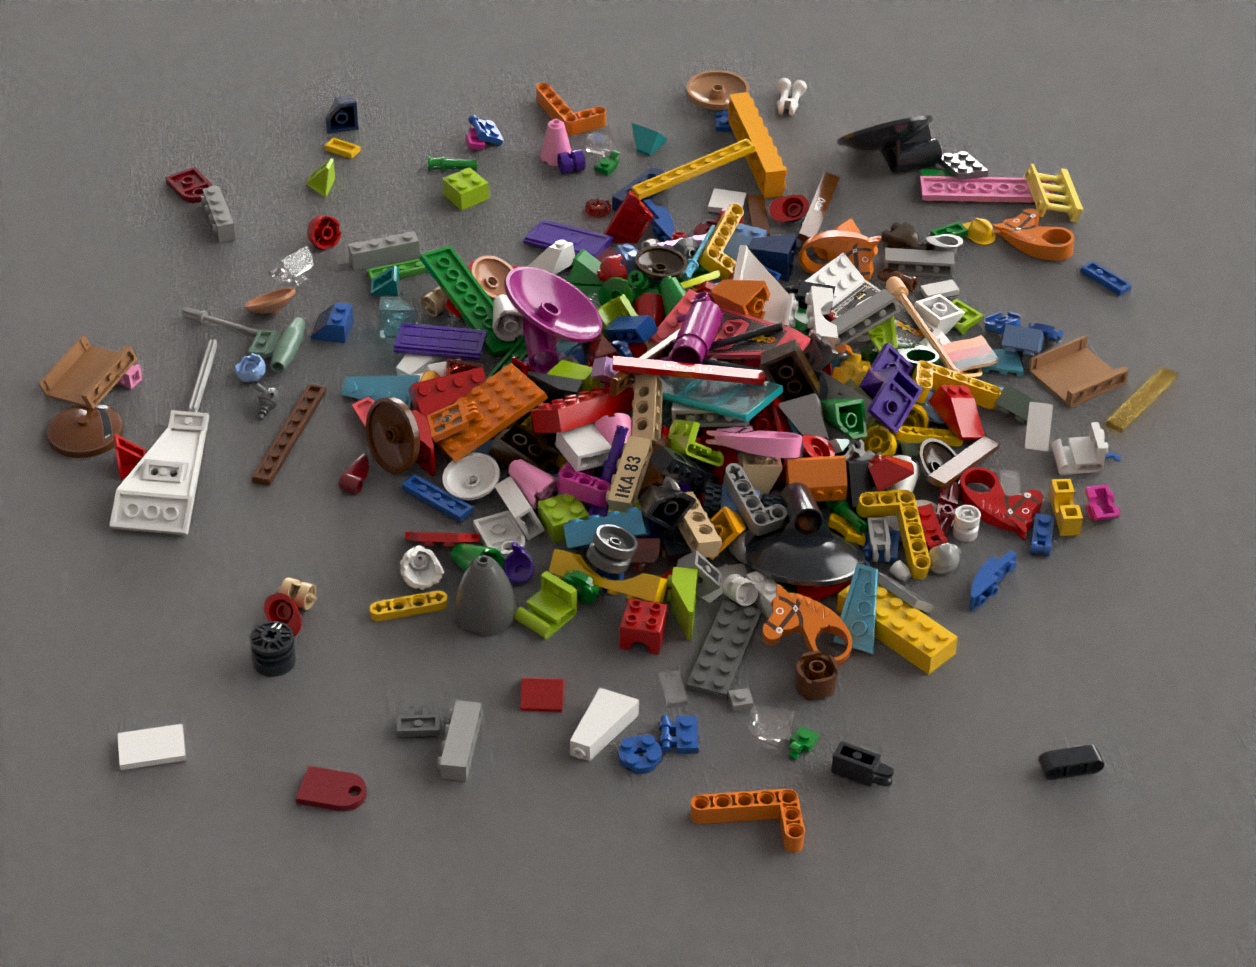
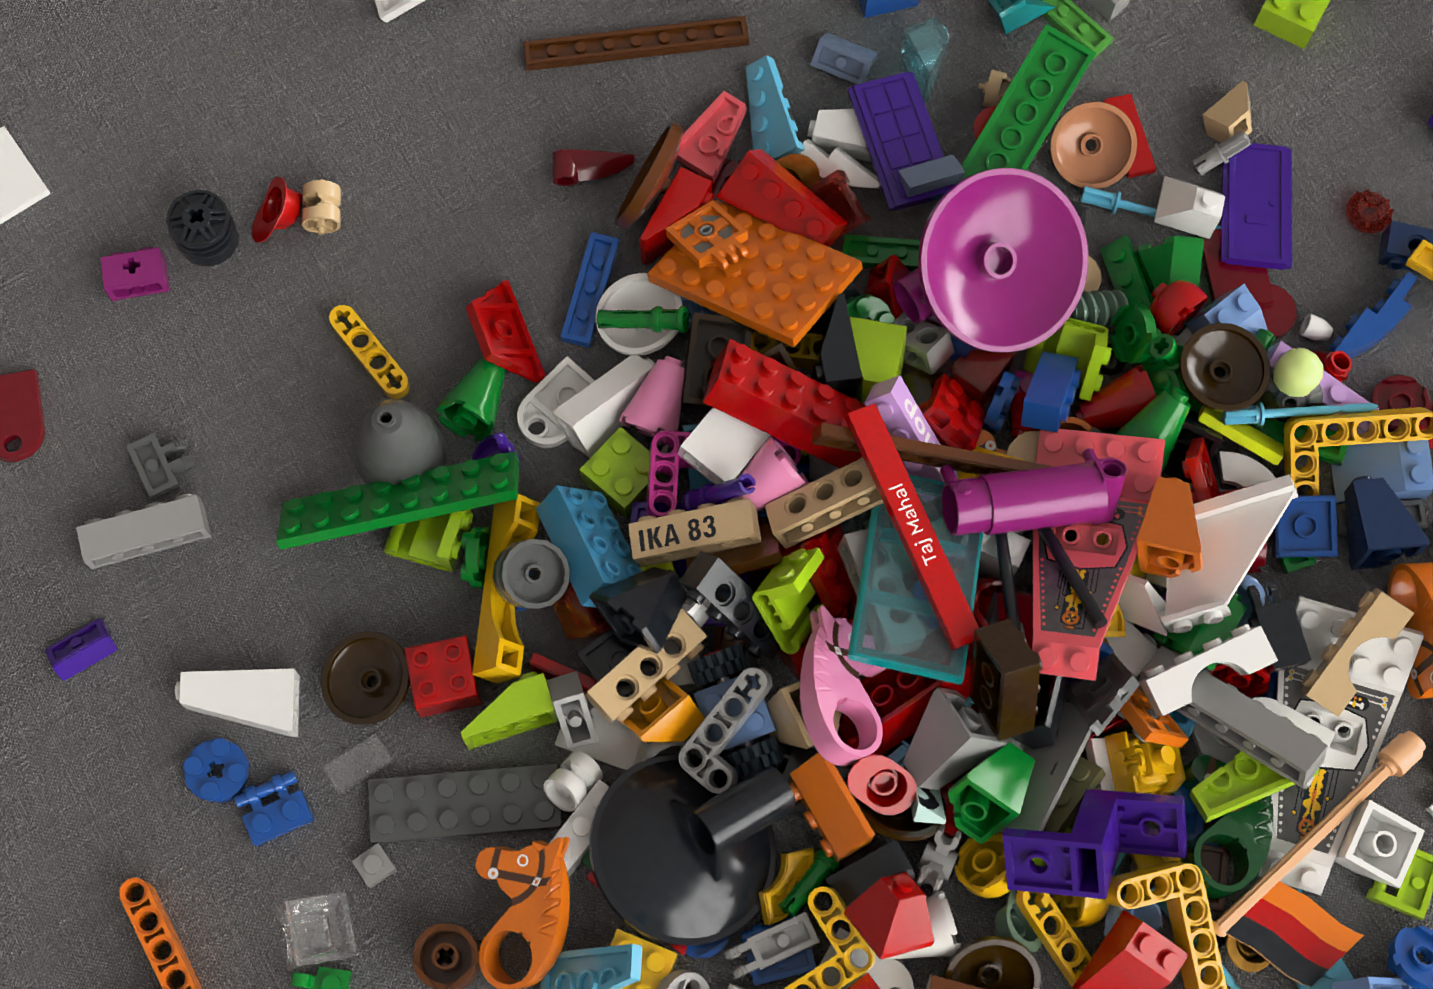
camera: 65 degrees right, 30 degrees up
(277, 695) = (135, 273): none -> magenta brick
(368, 355) = (843, 58): none -> sand blue panel
(420, 572) = (427, 333): white hair -> none
(473, 332) = (931, 175): none -> sand blue slope
(484, 462) = (655, 319): none -> green pin
(512, 229) = (1229, 114): none -> tan slope
(518, 798) = (81, 649): none -> dark purple slope
(520, 617) = (385, 505): none -> green plate
(531, 238) = (1222, 152): none -> light grey axle
(542, 694) = (279, 593): red slope -> none
(621, 649) = (349, 675): none -> dark brown dish
(629, 220) = (1329, 274): red wing -> none
(680, 239) = (1298, 372): none -> yellowish green hair
(848, 291) = (1377, 618): none -> tan arch

